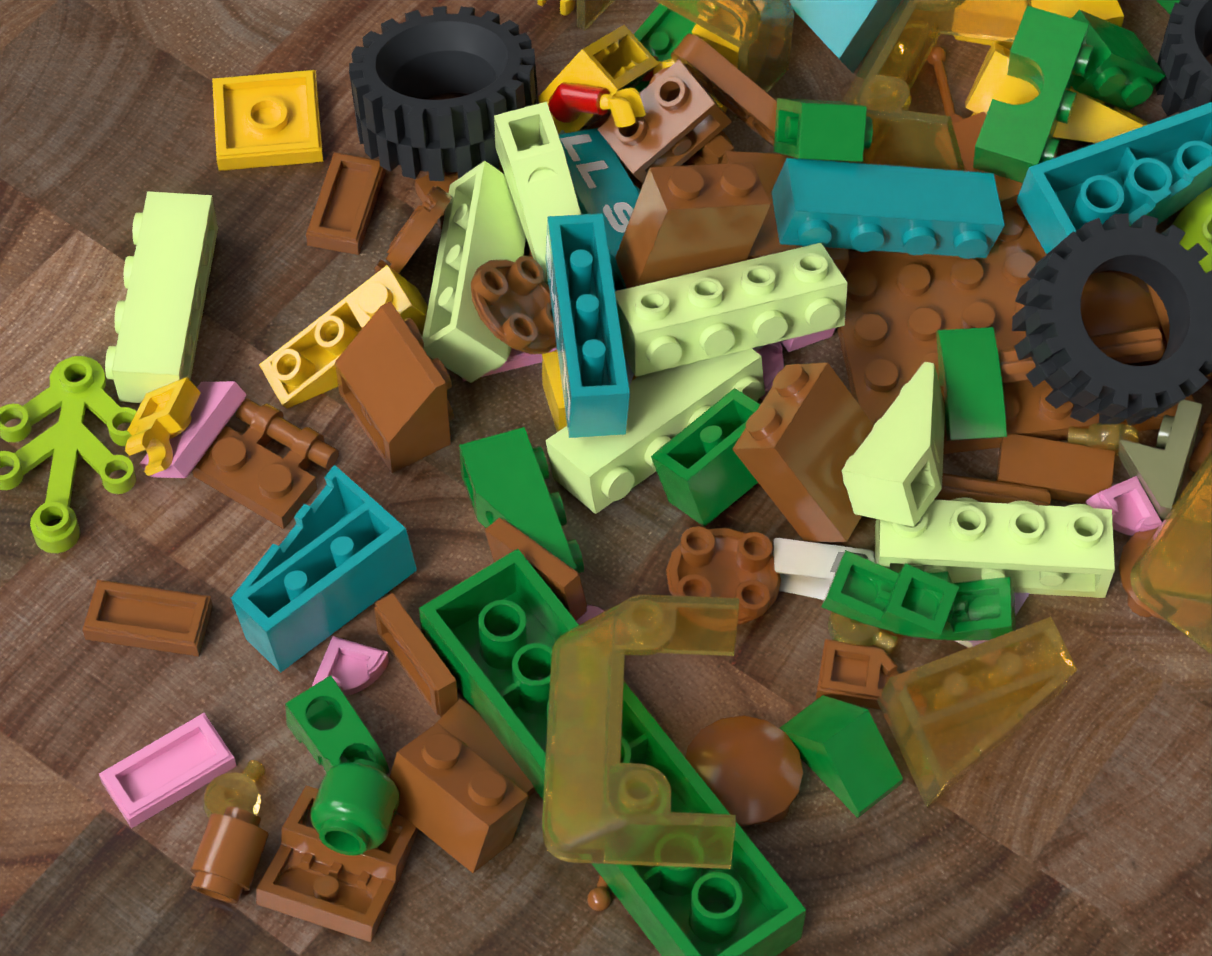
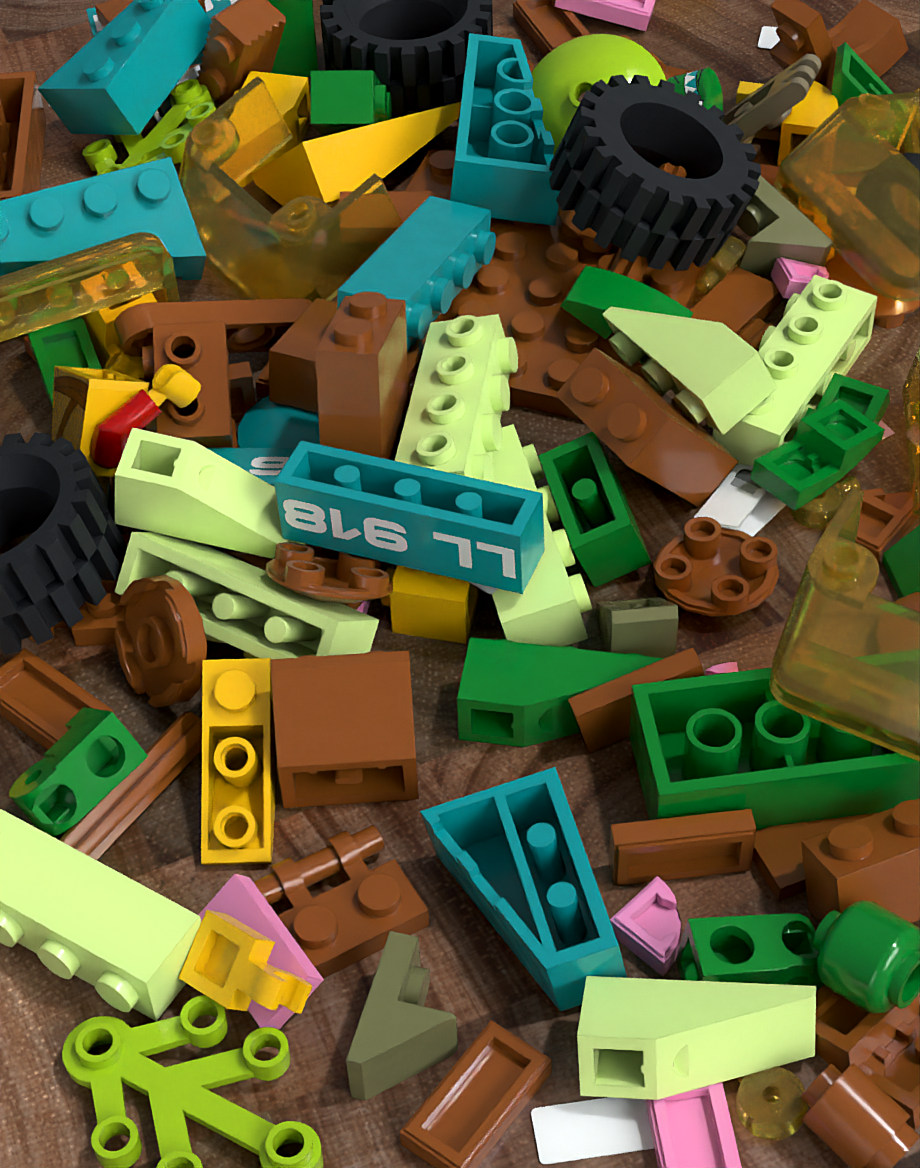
camera: 60 degrees left, 10 degrees down
(163, 695) = (591, 1129): none -> white sticker
(164, 533) = (395, 1029): none -> olive slope
(235, 708) = (685, 1034): none -> yellowish green slope
(282, 291) = (139, 789): none -> dark orange axle
(283, 248) = (77, 771): none -> green leg
(619, 542) = (639, 626): none -> olive slope
(822, 129) = (309, 269): green brick -> none
(1047, 55) = (353, 104): green arch -> none

